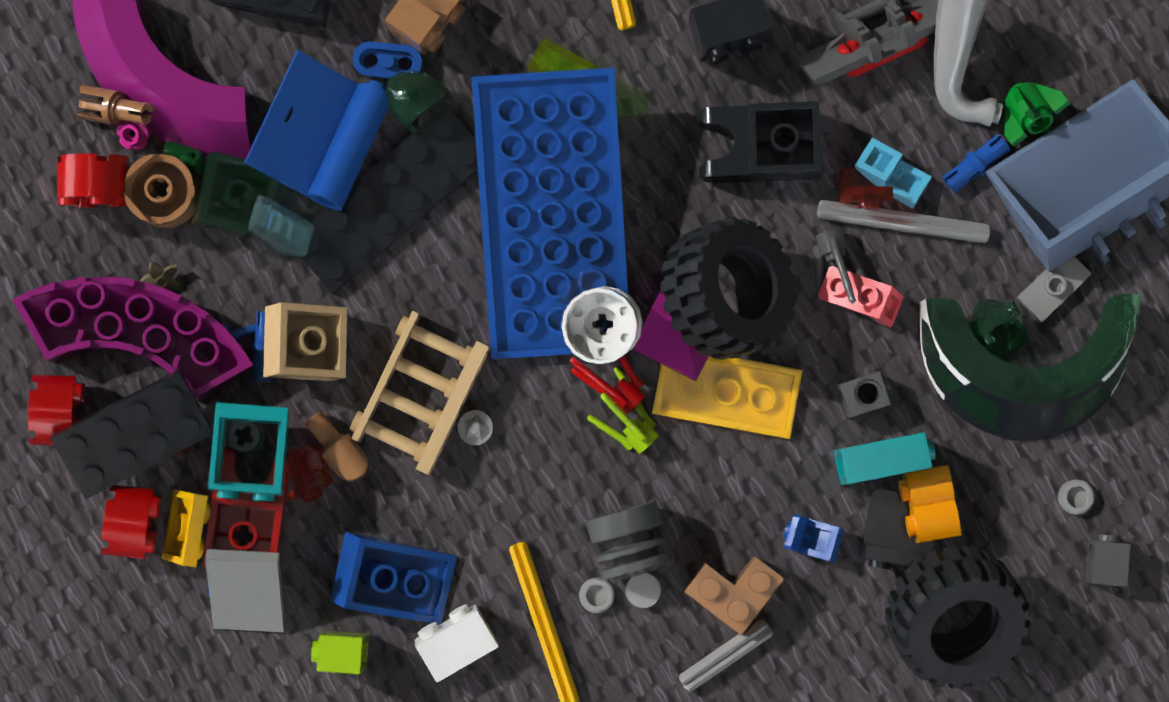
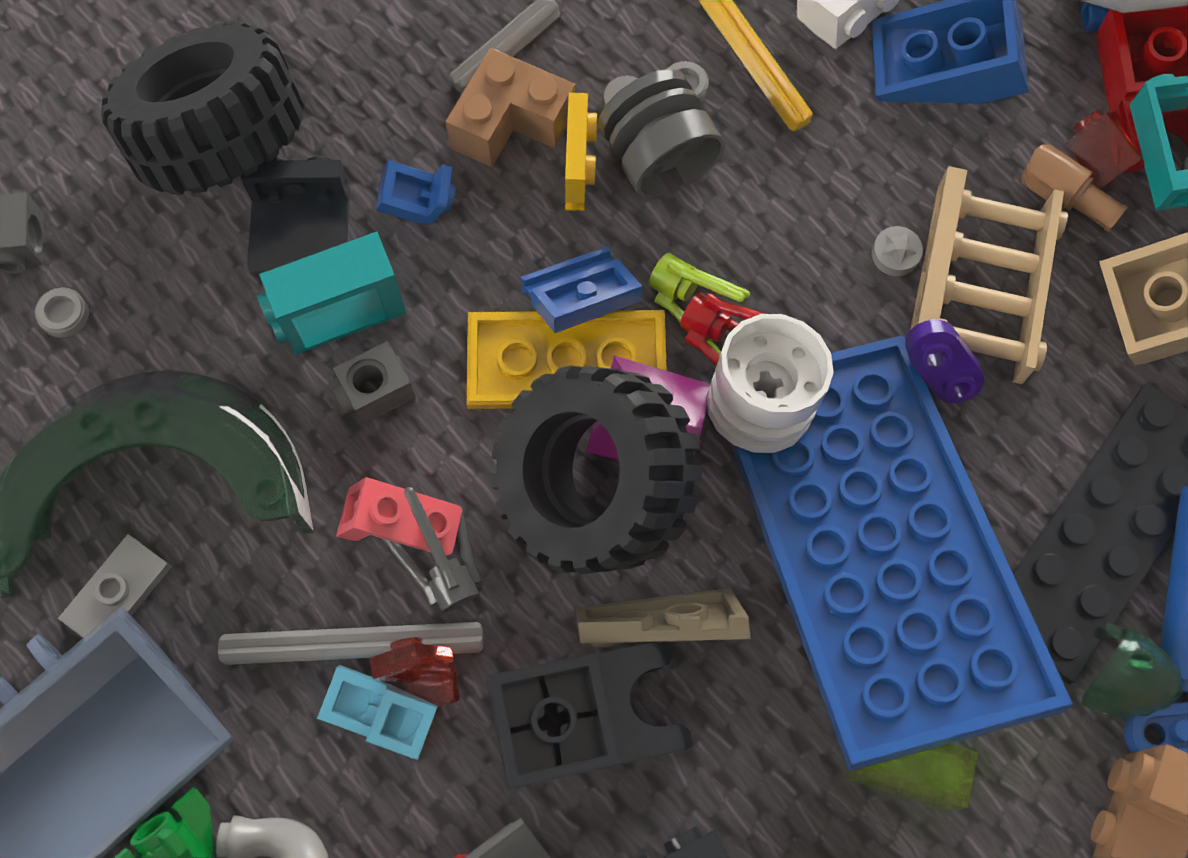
camera: 165 degrees right, 15 degrees down
(471, 328) = (952, 369): none -> dark purple plate
(686, 557) = (579, 166): none -> yellow plate
(698, 192) = (665, 618): none -> dark tan wing
(708, 435) = (581, 289): none -> blue plate
(930, 504) = (254, 243): light orange brick -> none
(976, 163) = (249, 753): blue pin -> none
(998, 326) = (194, 511): clear green helmet -> none

